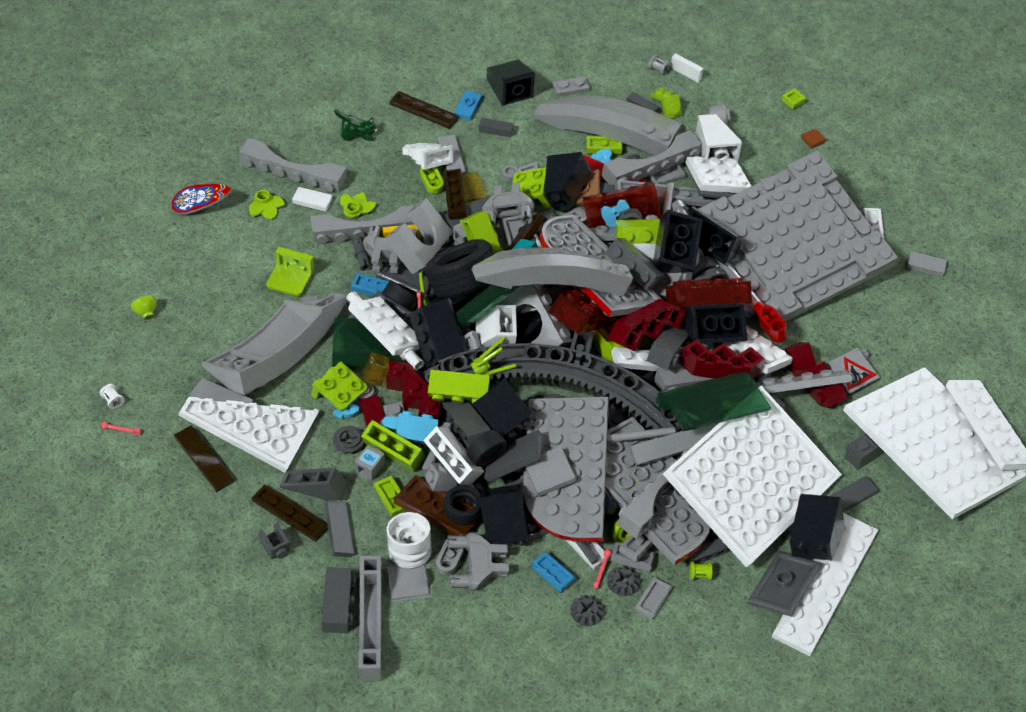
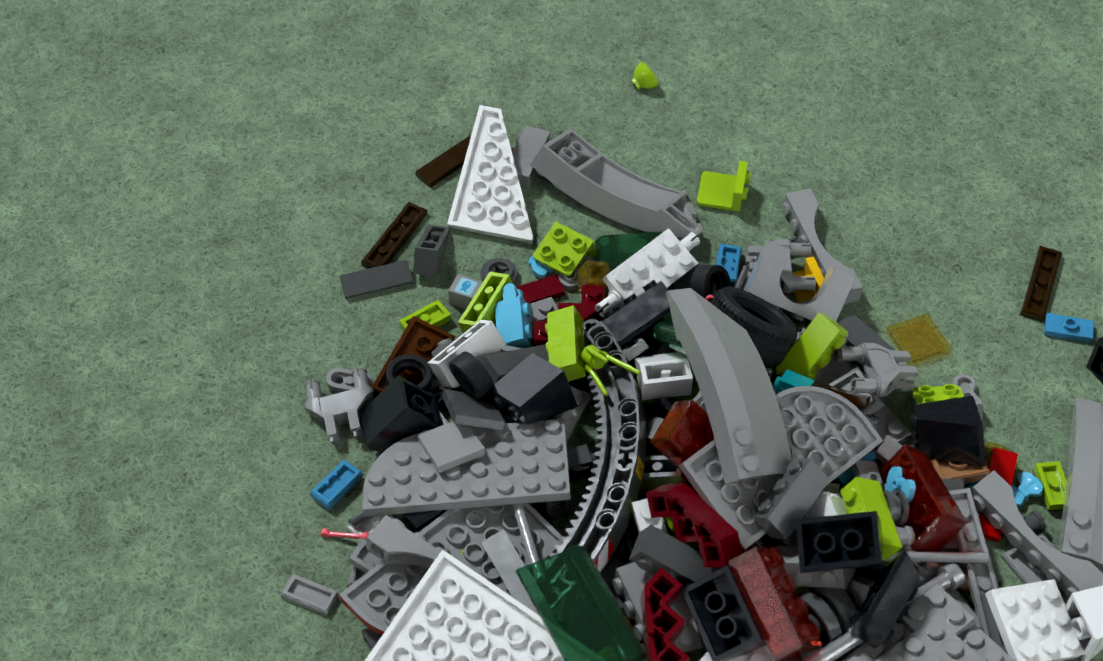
camera: 85 degrees right, 0 degrees up
(112, 396) = (519, 73): white bush -> none
(136, 431) = (485, 77): coral hinge -> none
(199, 197) = (811, 93): shield -> none
(265, 205) = (825, 154): lime plate -> none
(275, 543) = (349, 226): dark grey window -> none
(312, 199) = (849, 195): white tile -> none
(325, 176) = (887, 197): light grey arch -> none
(338, 600) = (281, 288): dark grey brick -> none
(355, 127) = (978, 214): dark green animal -> none
(357, 203) = (854, 236): lime plate -> none
(370, 619) = (212, 322): light grey arch -> none
(407, 582) = (317, 350): light grey piece -> none
(409, 540) = (357, 335): white wheel -> none
(429, 154) = (953, 289): white piece -> none
(432, 182) = (918, 302): lime plate -> none
(454, 193) = (893, 321): dark brown tile -> none
(457, 160) = (970, 320): light grey tile -> none
(495, 127) = (1038, 360): dark grey piece -> none
(587, 618) = (288, 534): dark grey gear -> none
(621, 588) = (327, 569): dark grey gear -> none
(700, 570) = (350, 642): lime bush -> none

